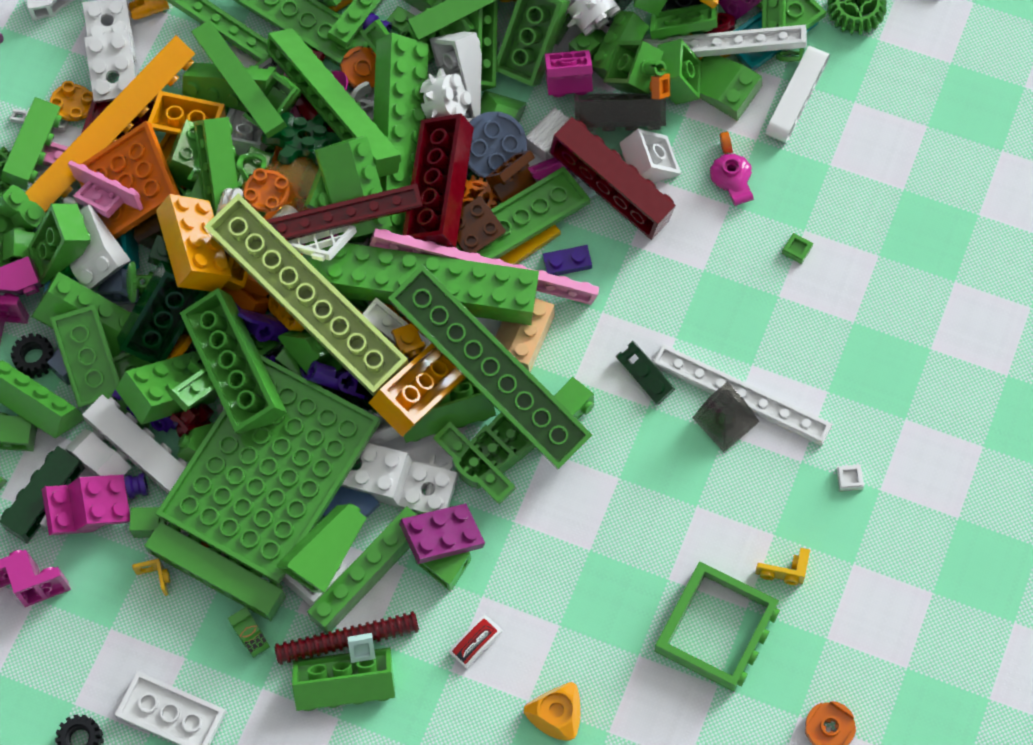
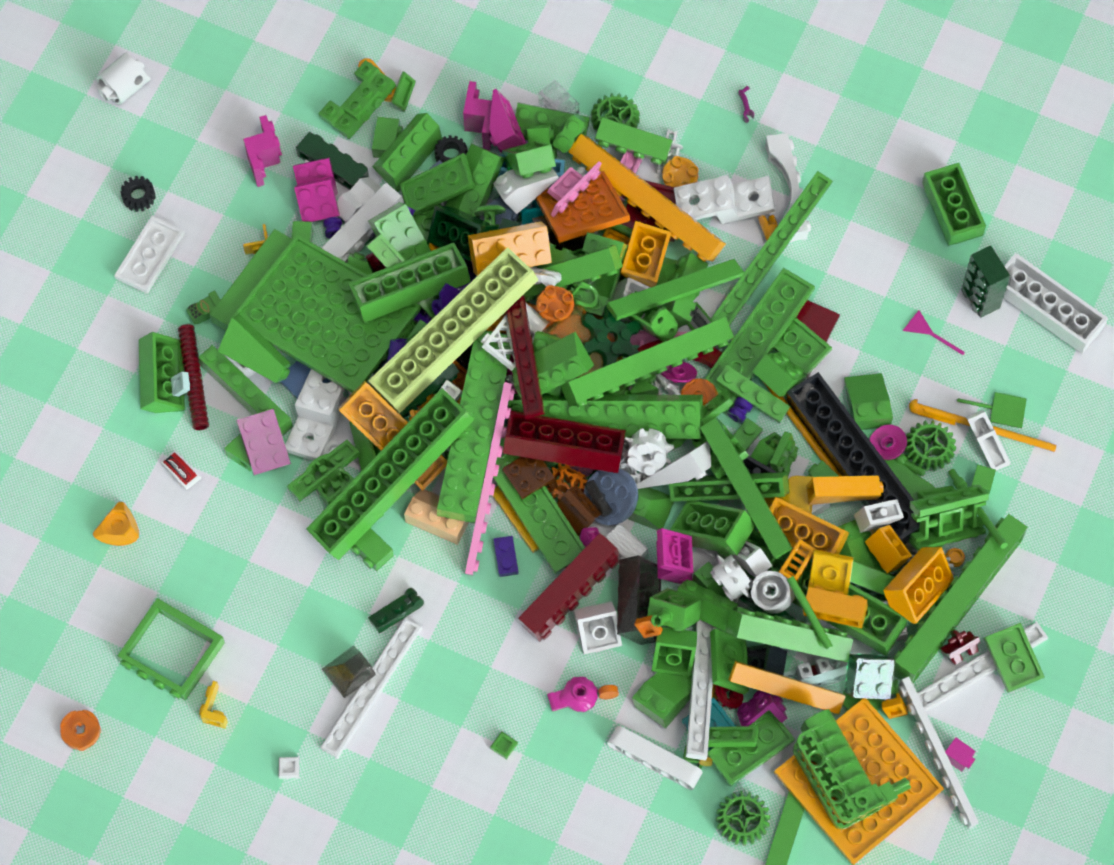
camera: 90 degrees right, 0 degrees up
(499, 155) = (598, 498): none -> clear smoke axle

